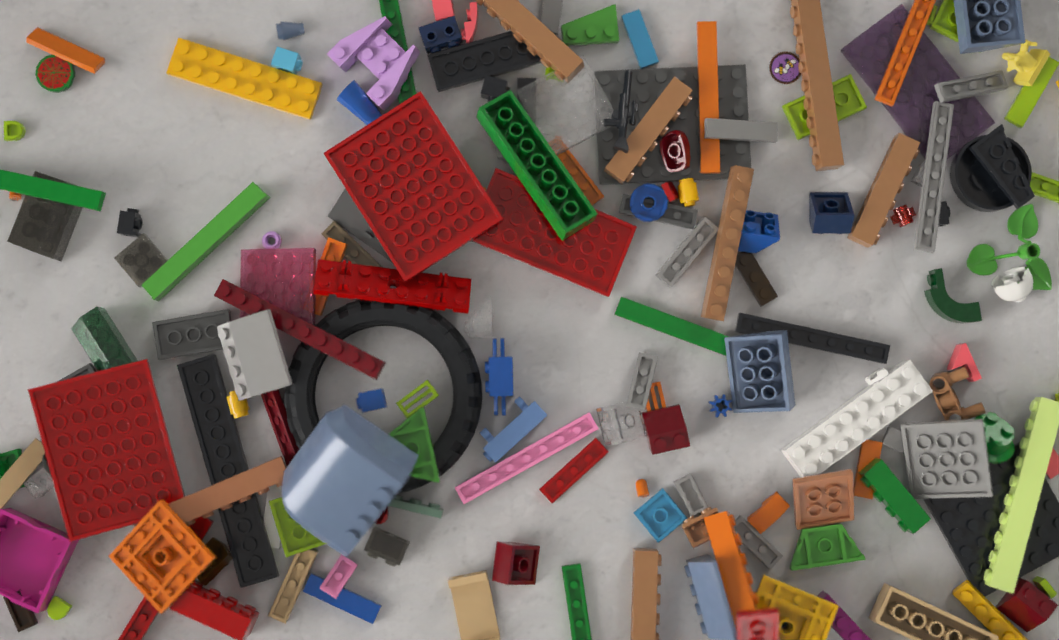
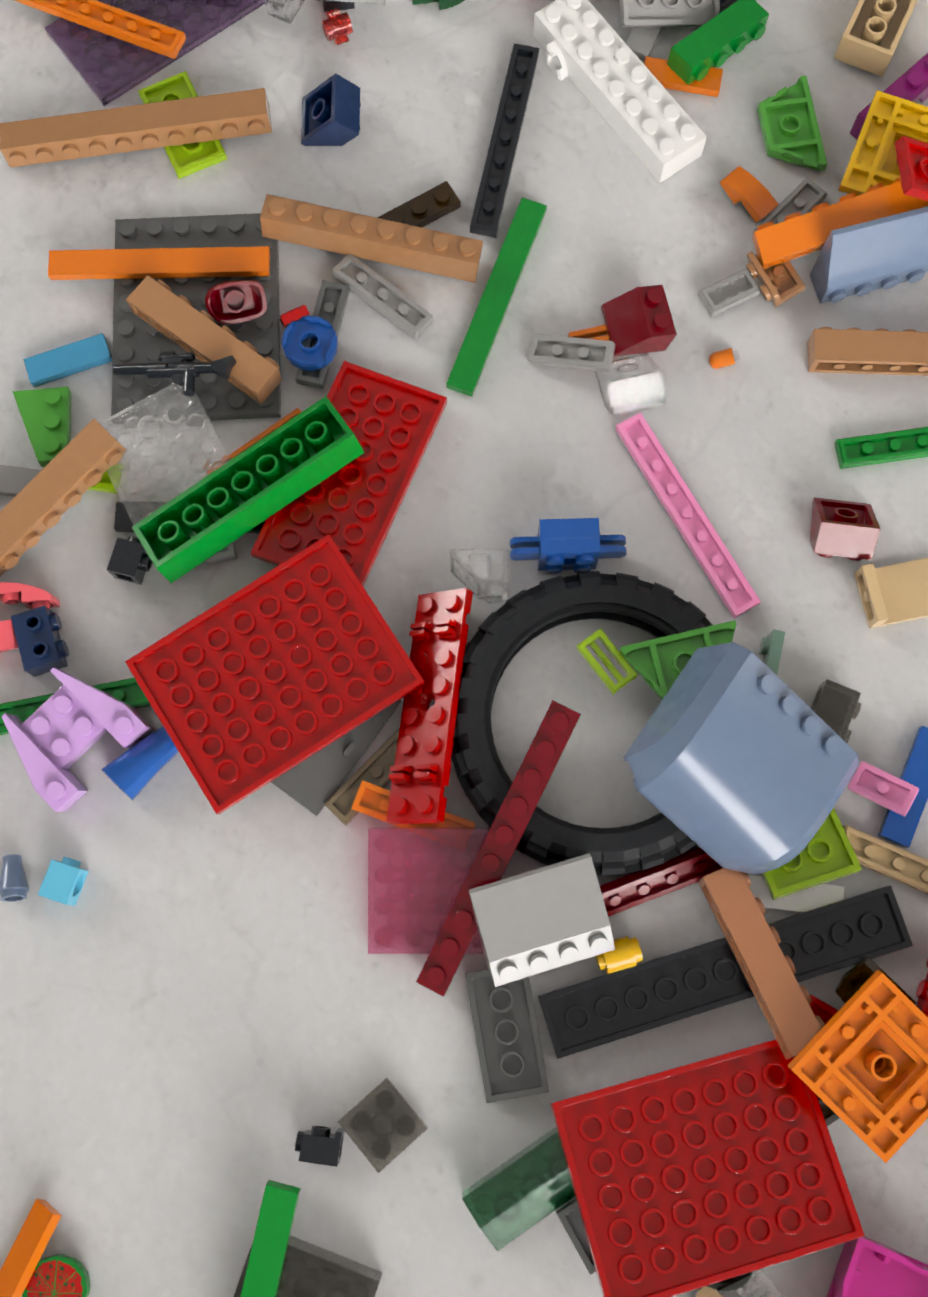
camera: 90 degrees left, 10 degrees down
(205, 241) = (354, 1014): bright green tile -> none
(244, 78) = (86, 957): yellow plate -> none
(265, 240) = (345, 900): lavender plate -> none
(371, 400) = (611, 728): blue brick -> none
(479, 58) = (82, 584): black plate -> none
(514, 432) = (648, 531): medium blue brick -> none
(573, 470) = (701, 450): red tile -> none
(660, 515) = (759, 334): dark azure tile -> none
(688, 192) = (296, 293): yellow brick -> none
(724, 402) = (602, 253): blue gear -> none
(740, 130) = (209, 221): light grey tile -> none
(759, 231) = (357, 194): blue slope -> none
(760, 372) = (554, 198): sand blue slope -> none
(785, 67) = (123, 173): sticker -> none
(823, 499) = (728, 119): nougat plate -> none
(883, 190) = (299, 48): medium nougat brick -> none

